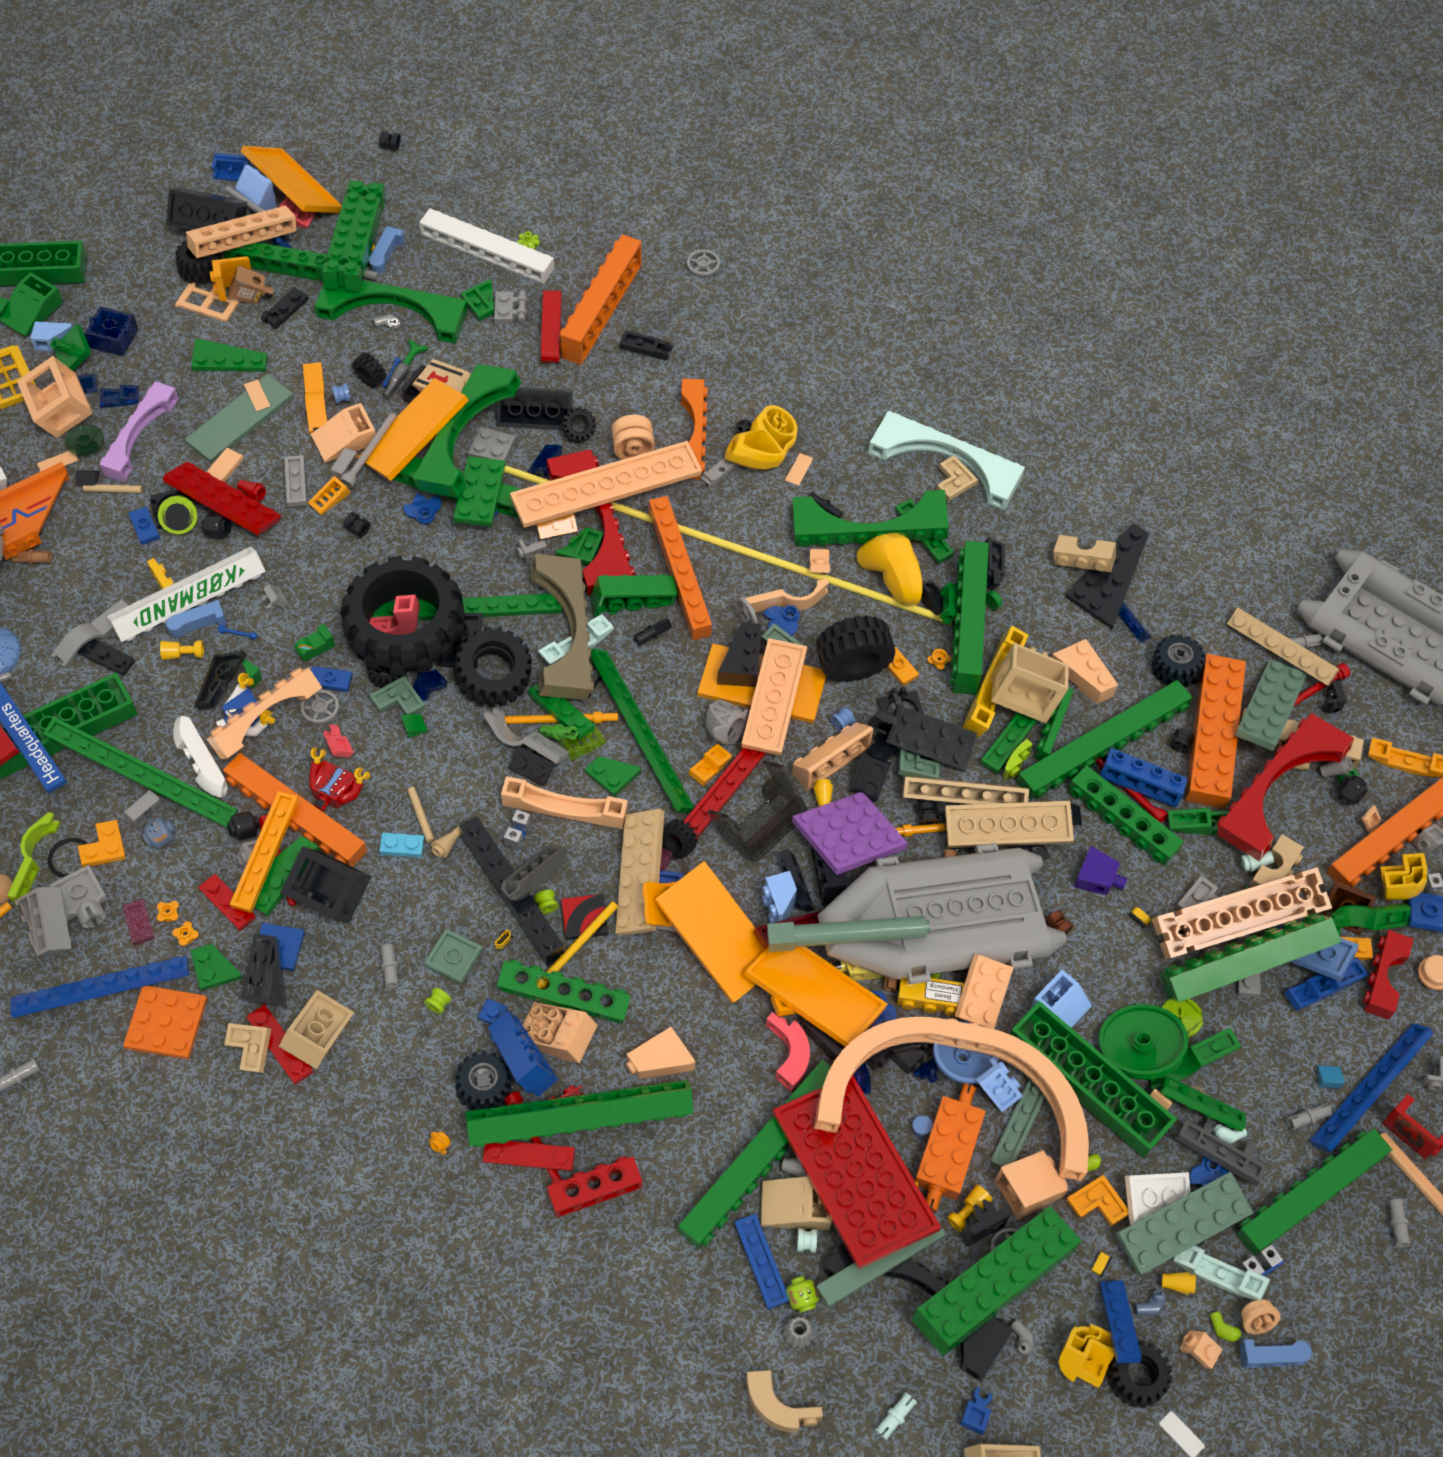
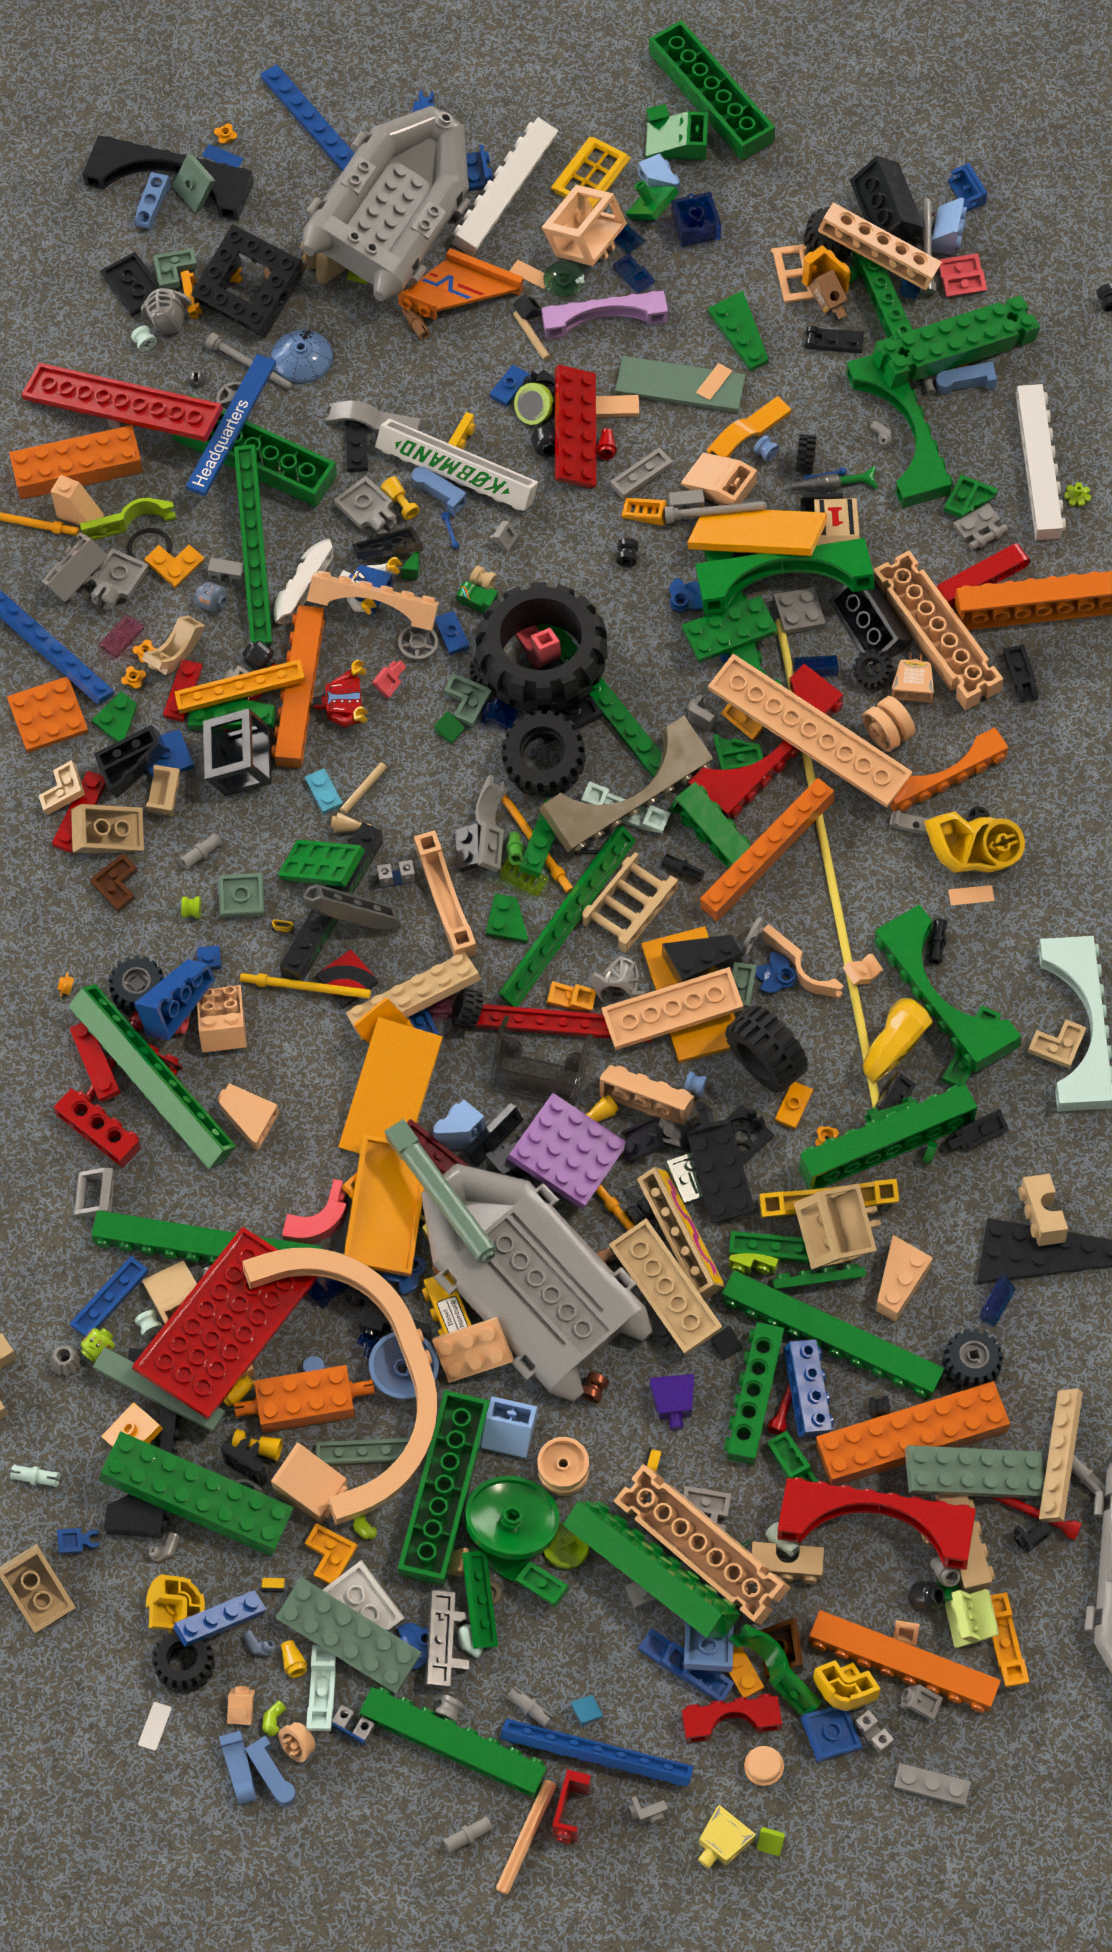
camera: 65 degrees right, 5 degrees up
(169, 676) = (367, 506): none -> light grey plate
(184, 882) = (177, 647): none -> tan arch
(292, 179) = (986, 246): light orange tile -> none
(303, 630) = (482, 578): none -> tan wheel
(313, 964) = (163, 790): none -> tan panel
(369, 1055) = (111, 879): none -> reddish brown plate
(474, 875) = (321, 863): none -> green plate
(546, 901) = (339, 938): lime wheel -> none
(551, 996) = (267, 1054): green brick -> none
(581, 370) = (938, 631): none -> light nougat brick
(605, 406) = (913, 680): none -> light nougat torso
(661, 1211) = (108, 1178): none -> light grey tile
(671, 667) = (639, 921): none -> tan fence
(899, 1305) = (134, 1423): none -> light orange plate
(999, 1086) = (389, 1410): light blue bracket -> none
(1118, 980) = (552, 1459): none -> light nougat wheel
(1258, 1380) = (238, 1766): none -> medium blue leg
(1283, 1179) = (449, 1708): none -> light grey wheel
(1384, 770) = (971, 1617): none -> yellowish green bracket

